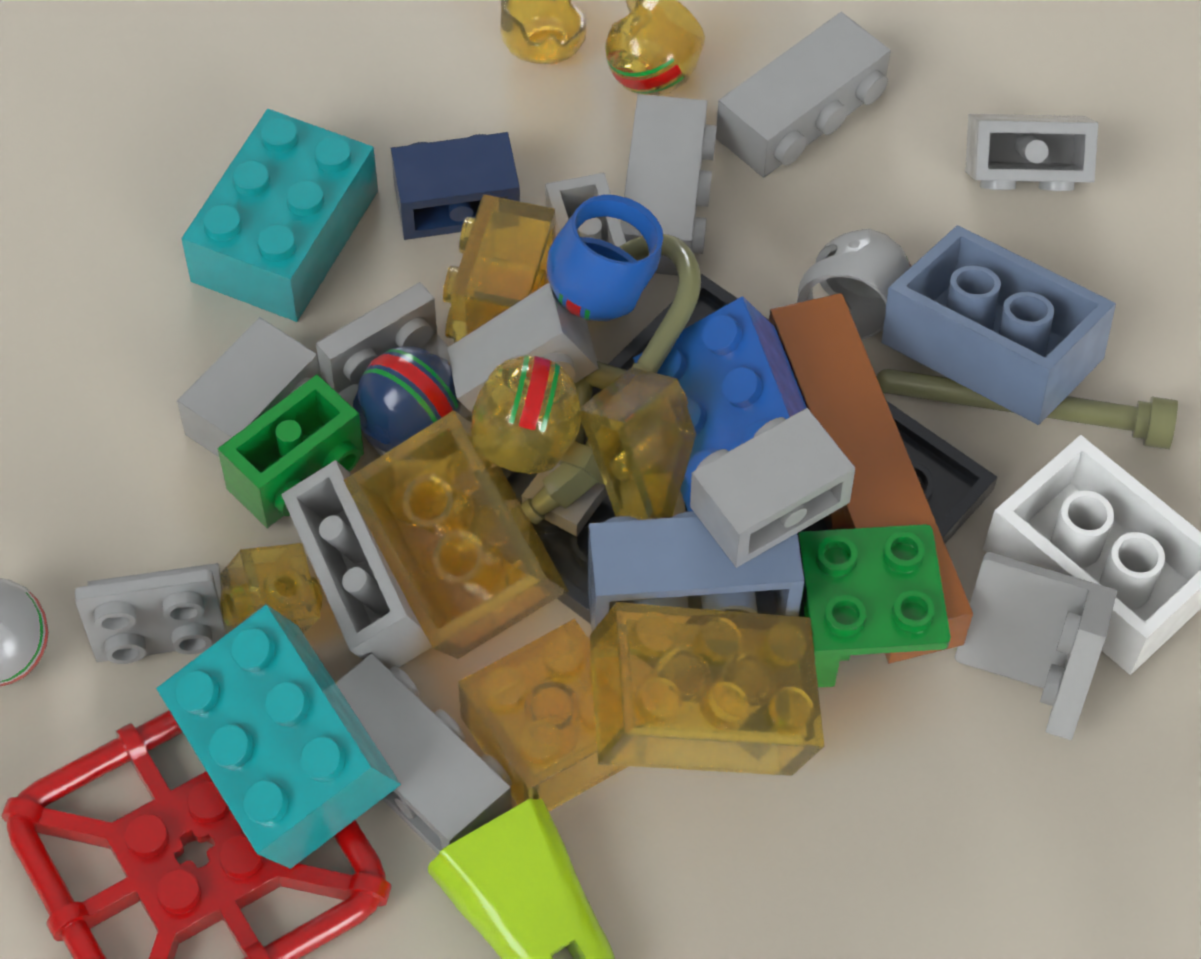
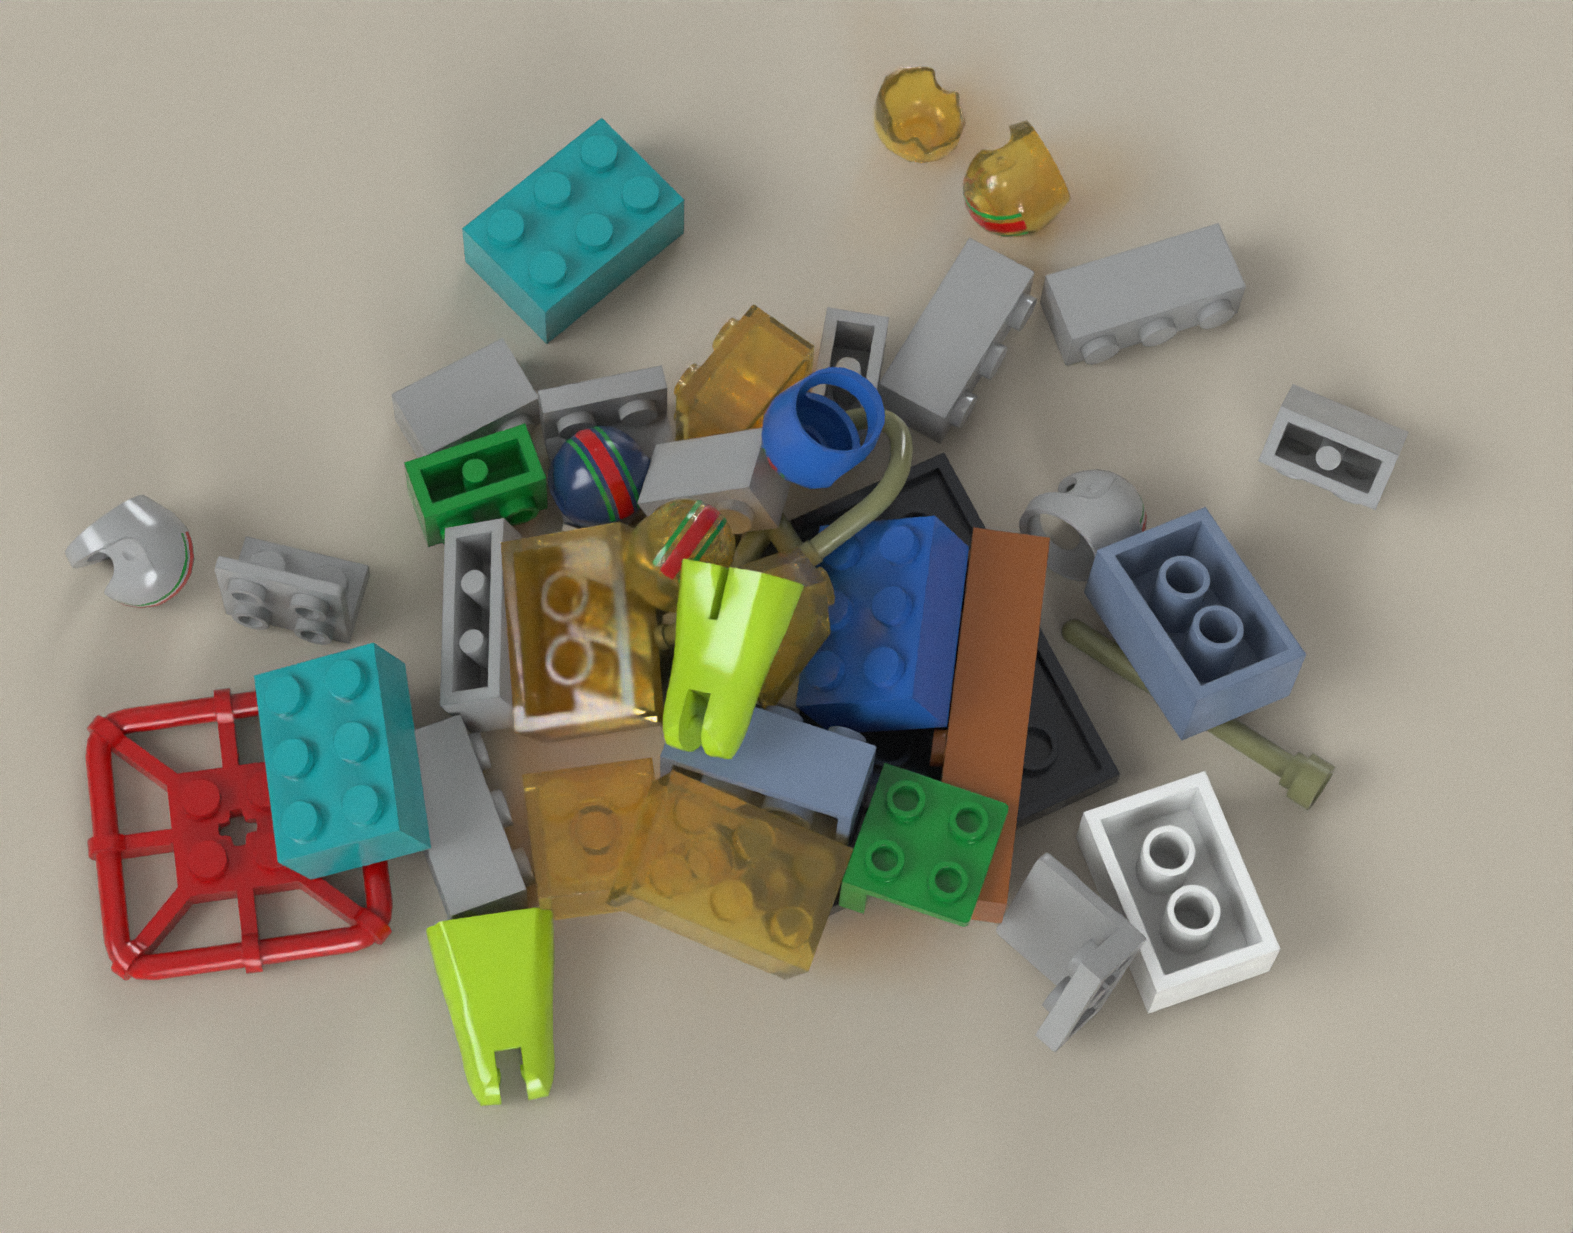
camera: 20 degrees right, 10 degrees up
(274, 578) = (398, 616): clear yellow brick -> none
(446, 180) = (754, 261): dark blue brick -> none
(618, 466) = (722, 653): none -> lime piece
(771, 486) = (857, 720): light grey brick -> none

